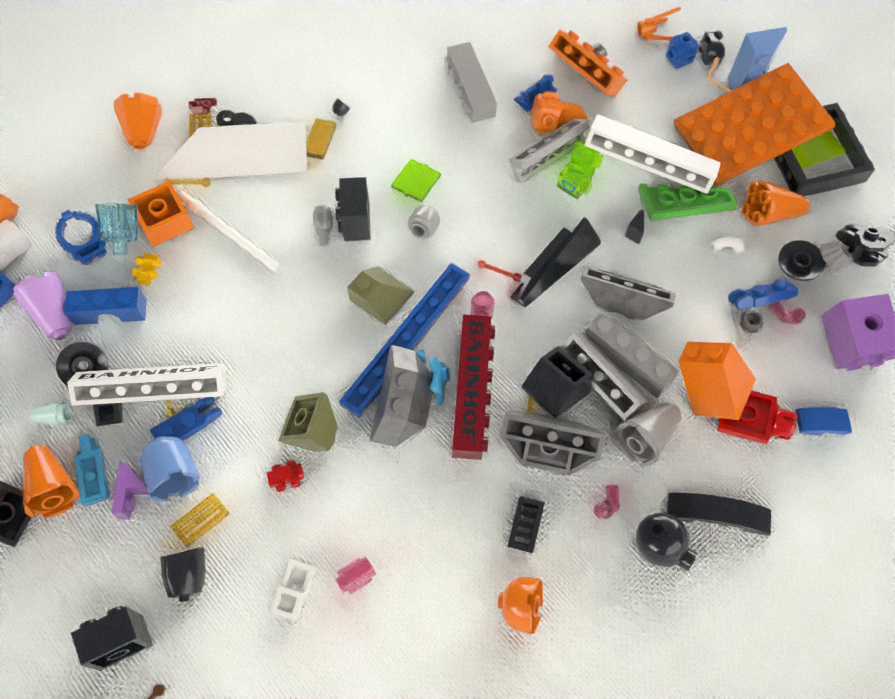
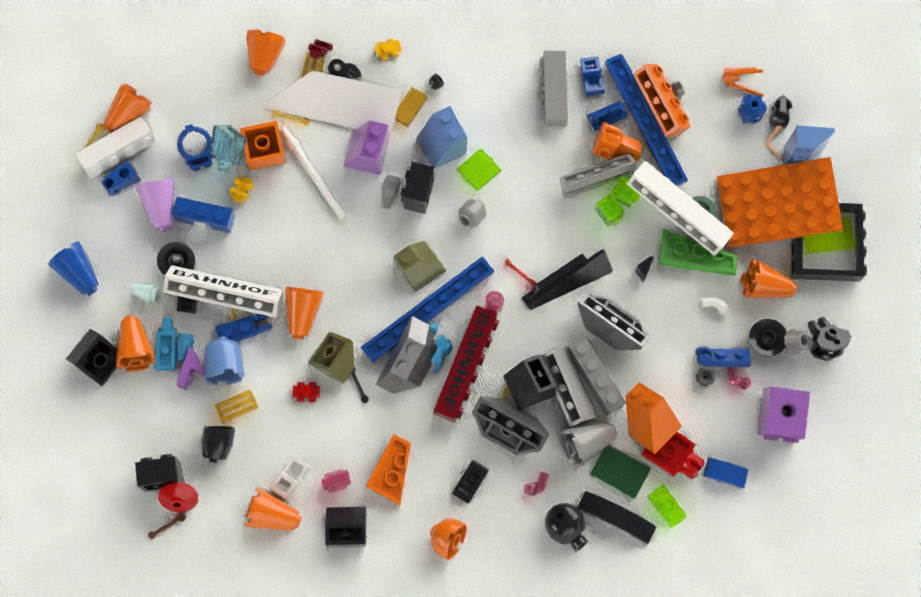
camera: 15 degrees right, 10 degrees up
(110, 461) = (183, 344): none -> dark azure cone
(145, 663) = (178, 497): none -> red dish
(253, 377) = (301, 310): none -> orange cone
(277, 89) = (390, 47): none -> yellow piece
(280, 645) = (271, 513): none -> orange cone
(285, 183) = (368, 147): none -> medium lavender slope
(361, 463) = (364, 399): none -> black hinge
(367, 150) = (443, 138): none -> medium blue slope
(385, 633) = (345, 527): none -> black slope
(420, 543) = (390, 470): none -> orange wing
(503, 62) = (592, 76): none -> blue slope
(572, 82) = (645, 120): none -> blue plate
(700, 457) = (620, 471): none -> clear green piece
(773, 481) = (667, 506): none -> clear neon green plate

